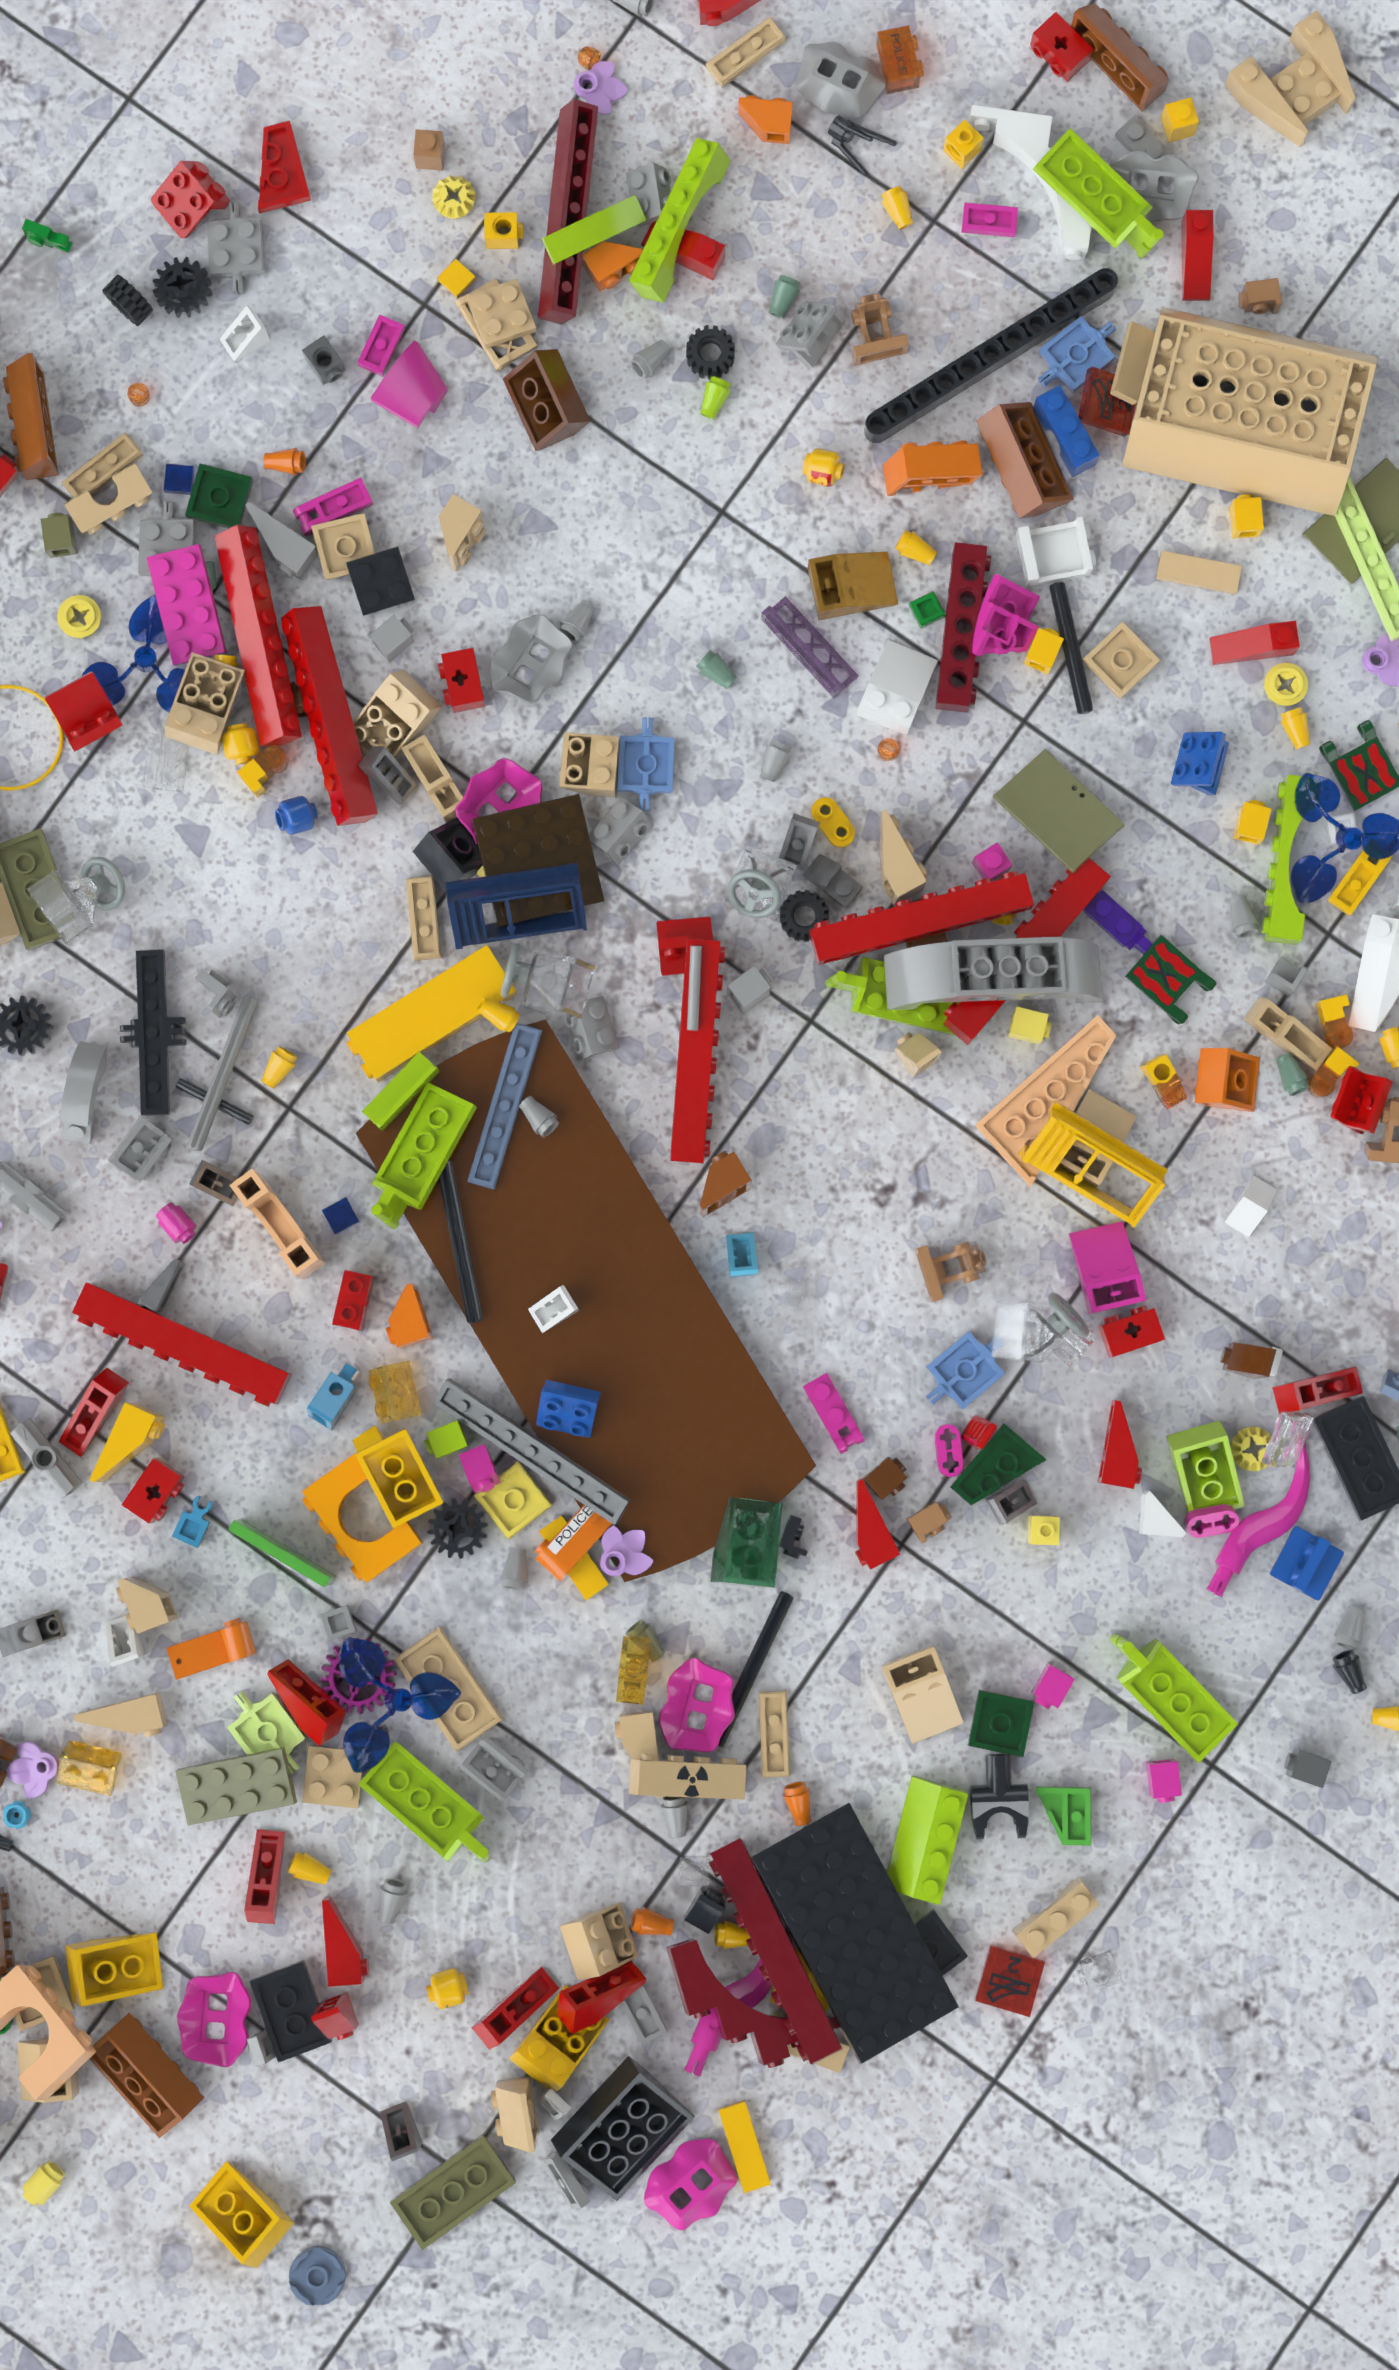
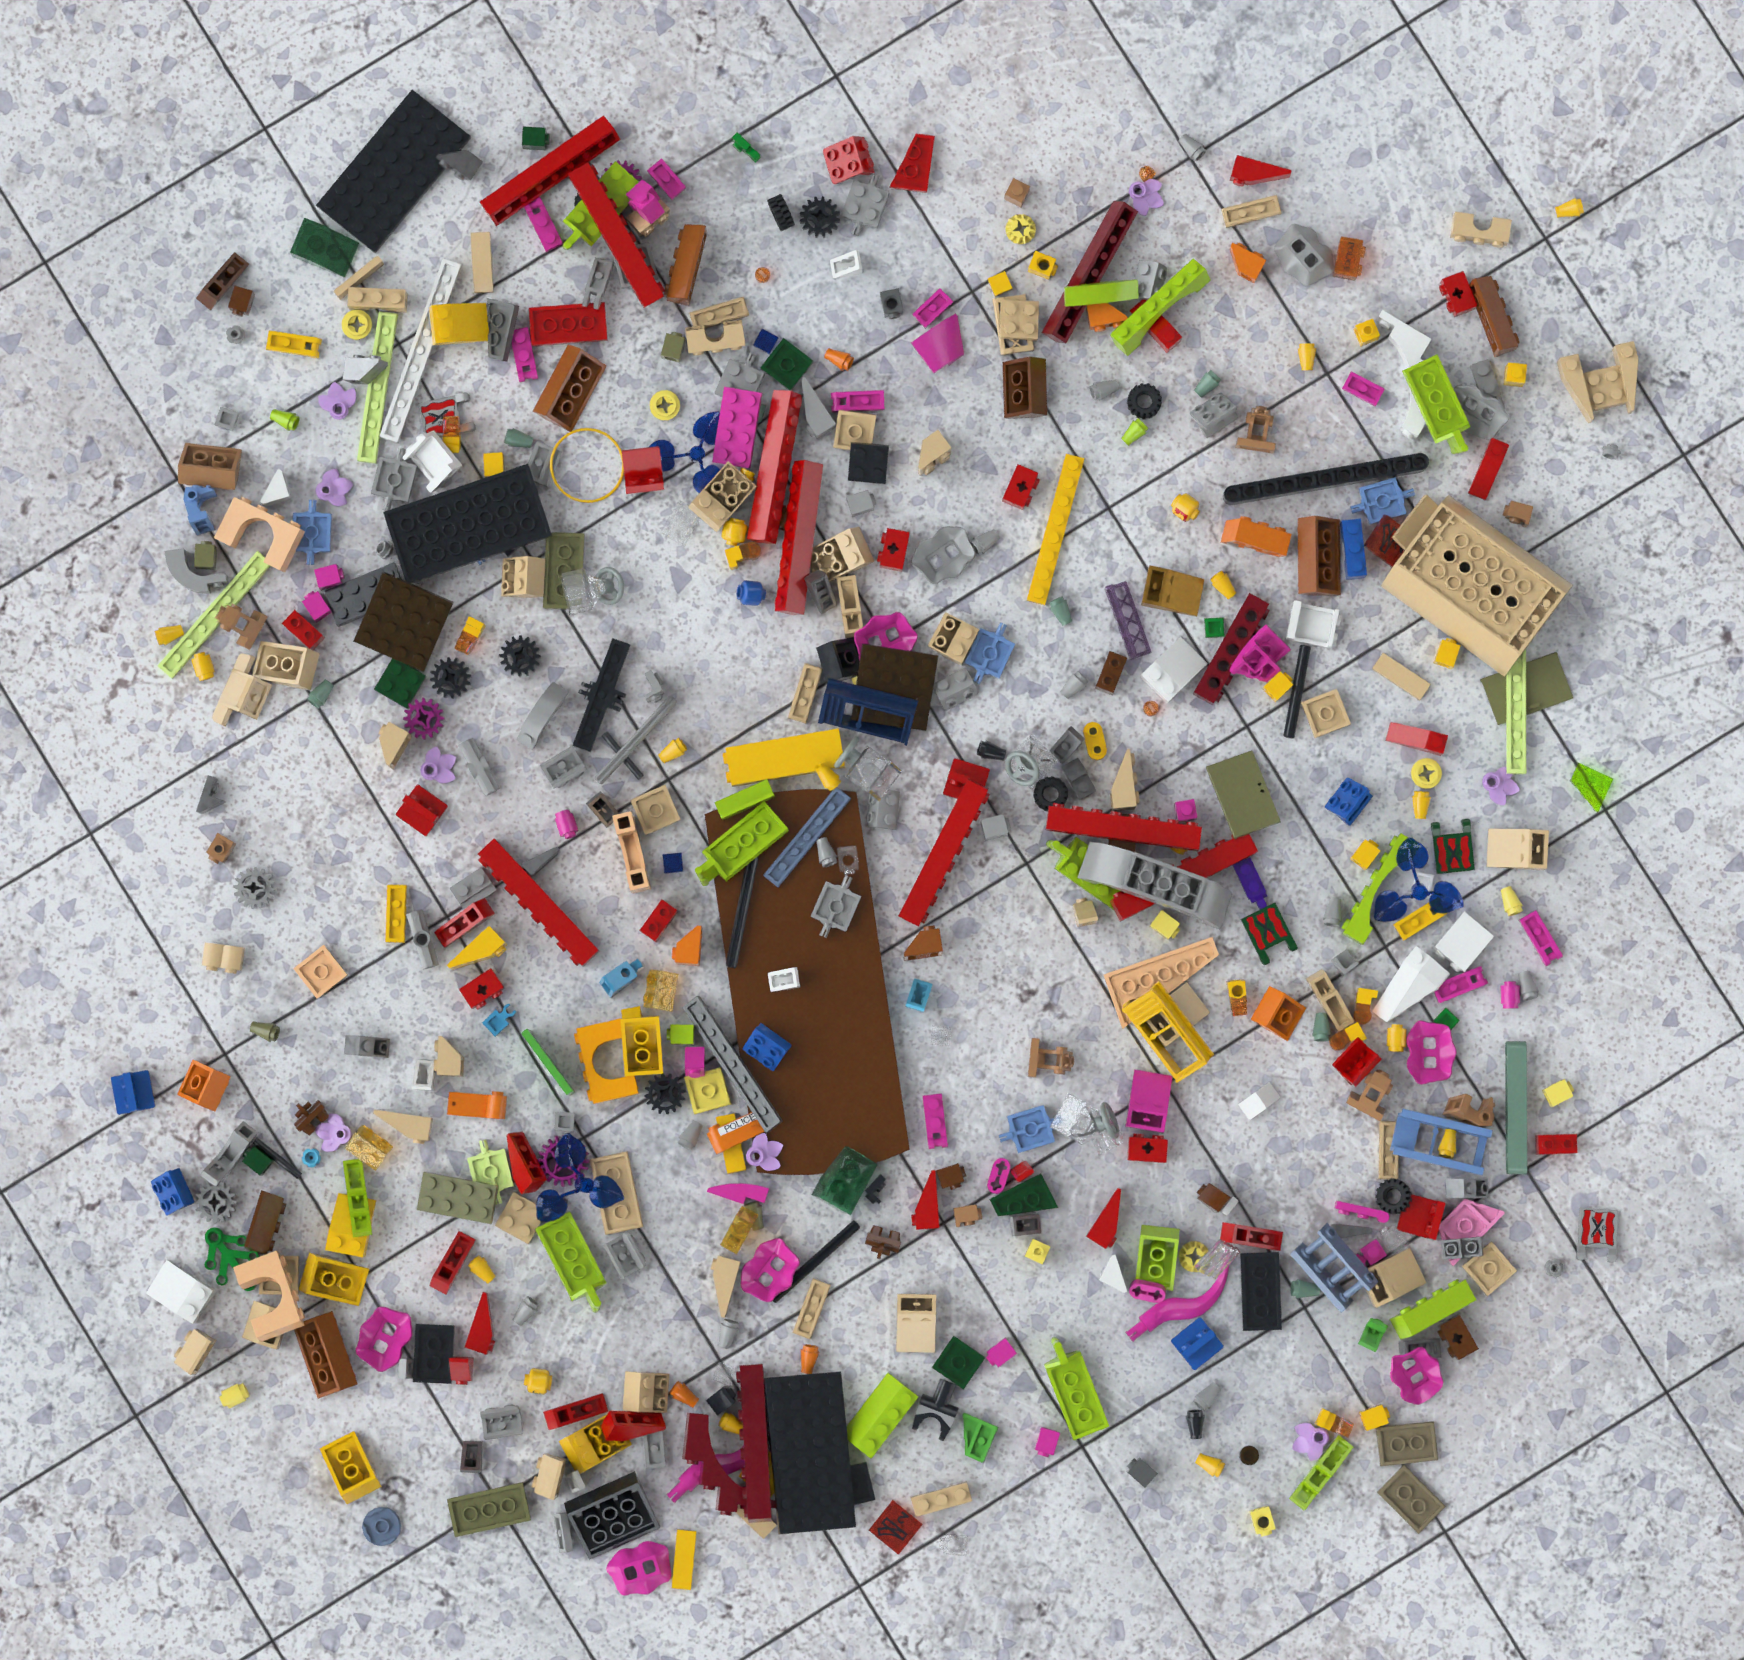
camera: 25 degrees right, 0 degrees up
(86, 1360) = (473, 888): none -> light grey plate
(100, 1844) = (357, 1198): none -> lime slope
(107, 1885) = (340, 1233): none -> yellow slope
(288, 1155) = (655, 810): none -> tan plate
(421, 2065) = (501, 1422): none -> light grey bracket
(568, 1101) = (845, 851): none -> clear brick
(581, 1182) = (835, 906): none -> light grey plate
(592, 514) = (1021, 476): none -> red brick
(613, 1618) = (740, 1191): none -> dark pink slope
(664, 567) = (1055, 529): none -> yellow plate
(687, 1779) = (744, 1312): tan brick -> none
(694, 987) = (958, 813): light grey bar -> none
(701, 892) = (990, 751): none -> black cone
(817, 723) = (1111, 673): none -> reddish brown brick
(833, 1608) = (882, 1244): none -> reddish brown hips
(844, 130) = (1294, 290): black plant -> none
(1346, 169) = (1611, 451): none -> light grey plate

